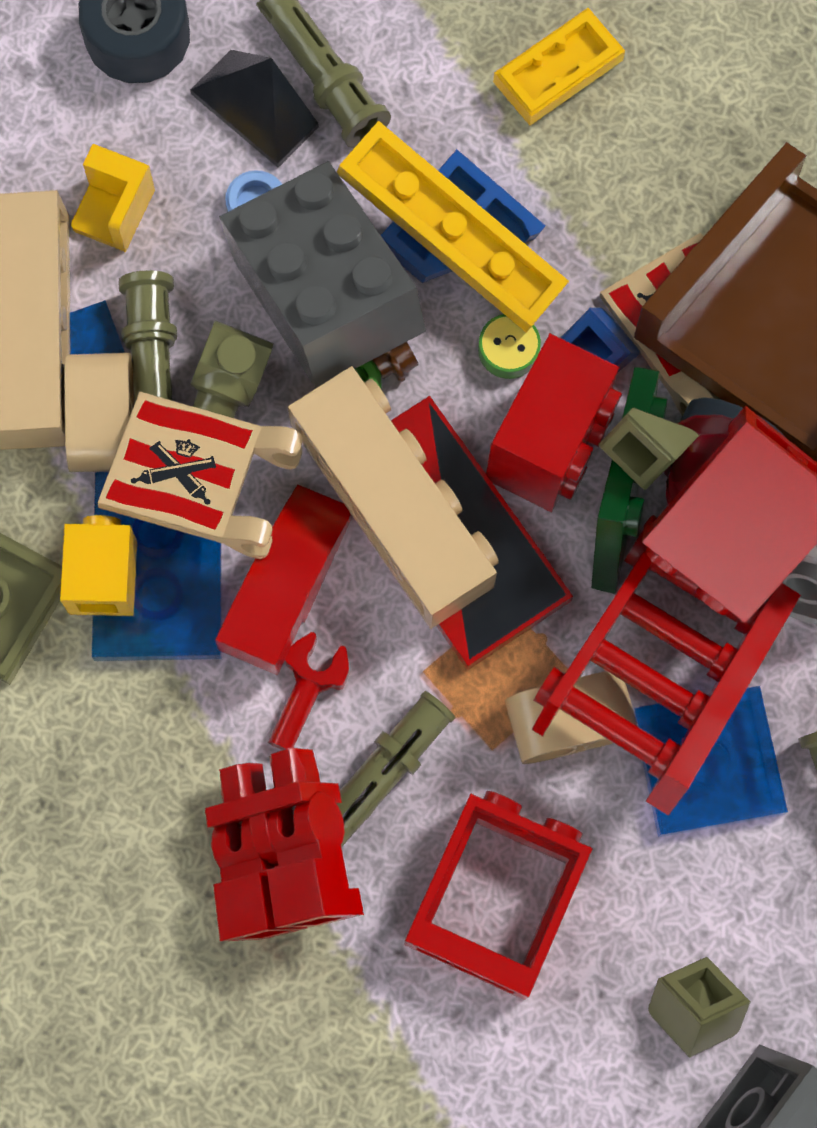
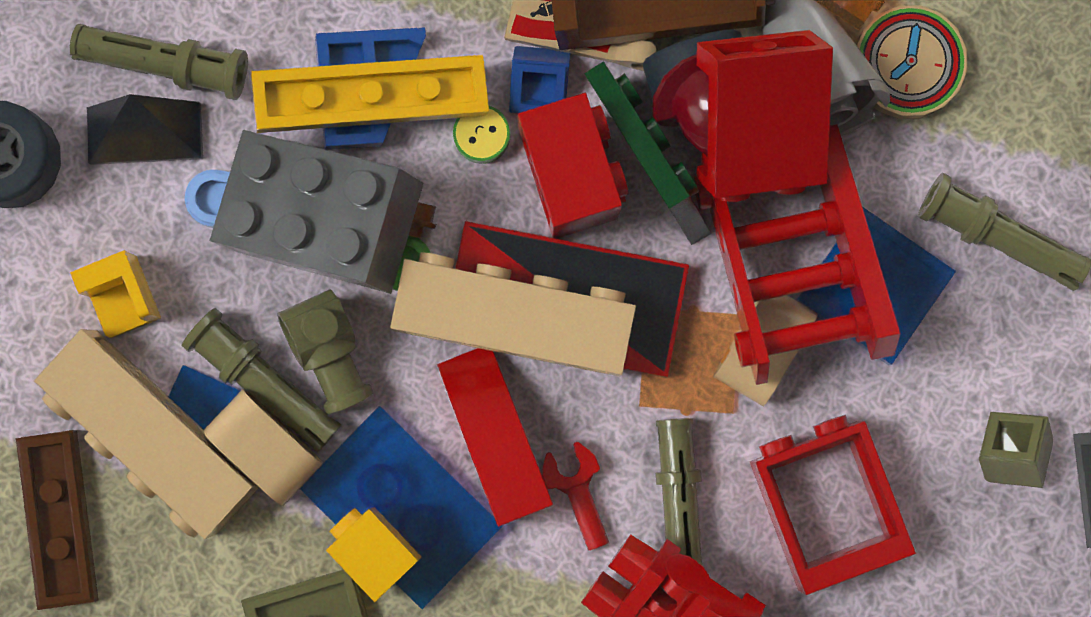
camera: 40 degrees left, 10 degrees up
(188, 470) = (364, 432): tan flag -> none
(646, 445) = (656, 130): olive slope -> none

